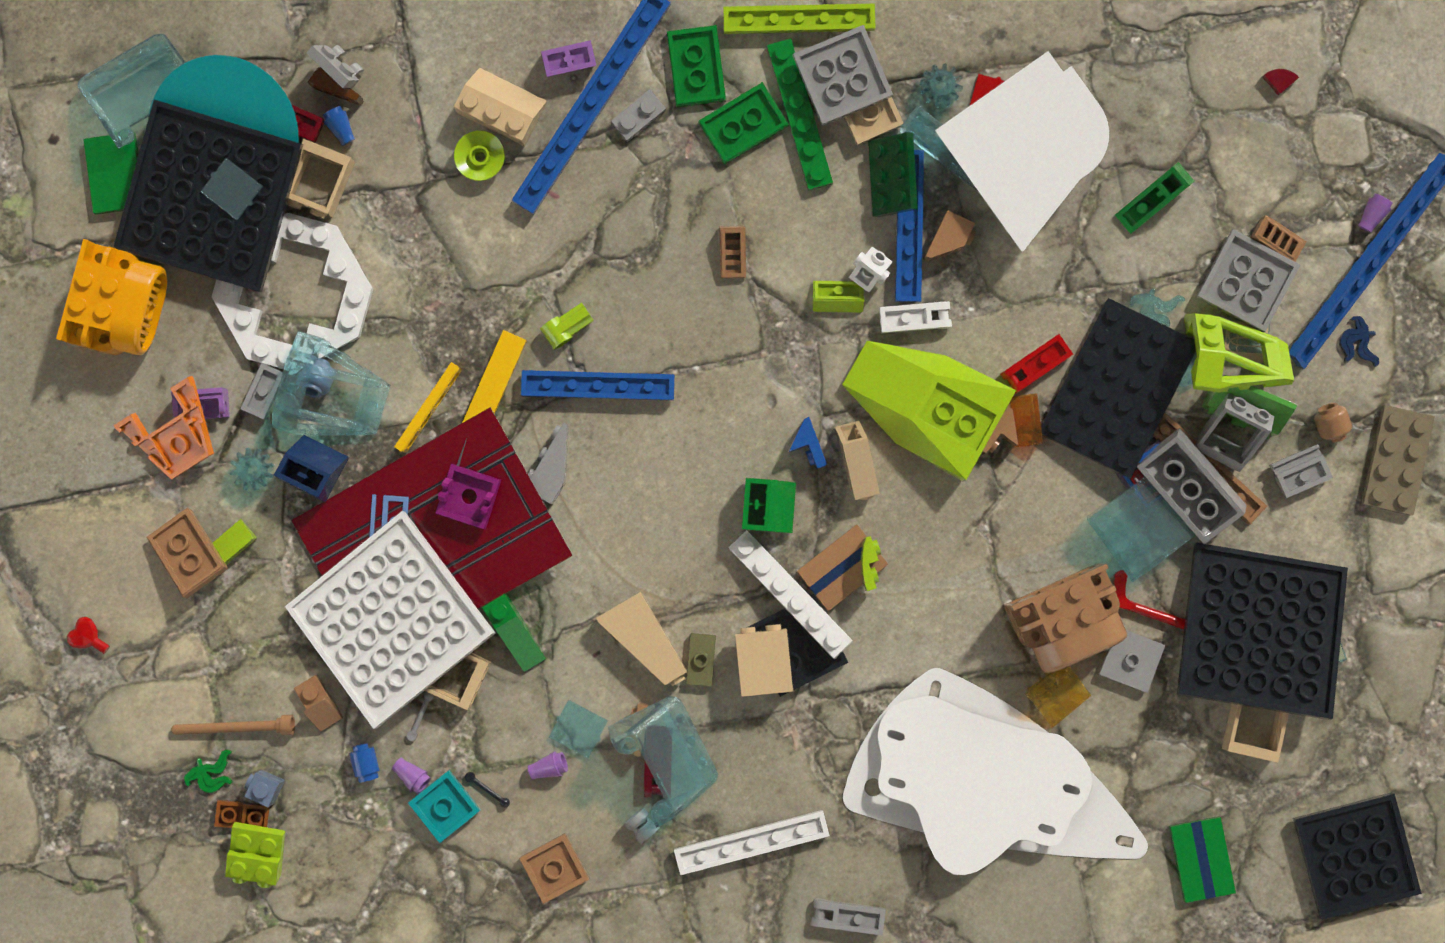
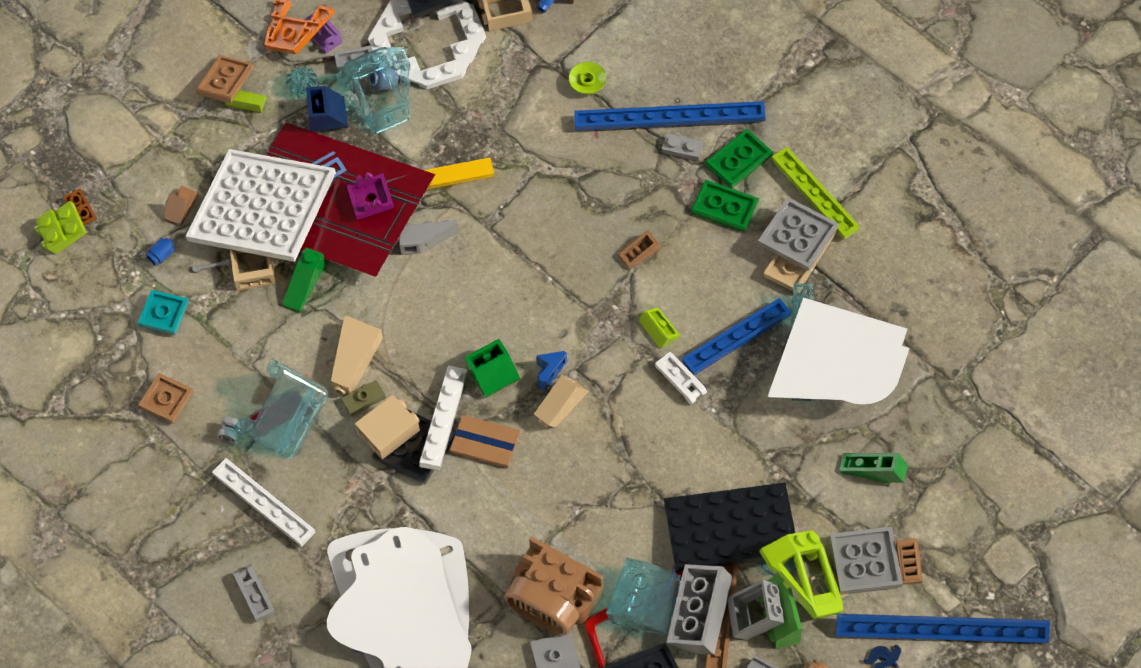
camera: 60 degrees right, 25 degrees down
(86, 635) = (135, 61): red rock -> none
(205, 781) = (91, 172): green piece -> none
(263, 788) = (106, 207): sand blue brick -> none
(283, 725) = (153, 194): medium nougat piece -> none
(411, 775) = (170, 281): medium lavender cone -> none
(428, 408) = (411, 147): yellow tile -> none
(470, 777) = (192, 317): black hinge -> none
(500, 106) = (627, 70): tan slope -> none
(549, 766) = (232, 355): medium lavender cone -> none
(561, 329) = (515, 187): lime piece -> none
(568, 58) = (686, 85): medium lavender hinge -> none
(578, 728) = (262, 353): clear light blue piece -> none
(597, 385) = (496, 229): blue plate -> none
(799, 115) = (748, 240): green plate -> none
(869, 554) = (502, 445): lime slope -> none
(870, 269) = (689, 329): white brick -> none
(892, 174) = (759, 302): dark green plate -> none
(929, 403) = (631, 420): lime wedge -> none
(931, 83) = (840, 289): clear light blue gear -> none
(950, 236) = (747, 363): medium nougat slope -> none
(1005, 429) = (648, 471): medium nougat slope -> none
(1027, 420) = (666, 487): clear orange slope -> none
(1038, 363) = (707, 468): red plate -> none
(1057, 694) = (497, 623): clear yellow hinge -> none
(1148, 302) = (804, 511): clear light blue piece -> none
(1280, 79) = (1015, 494): dark red tile -> none
(1375, 211) = (976, 609): medium lavender cone -> none

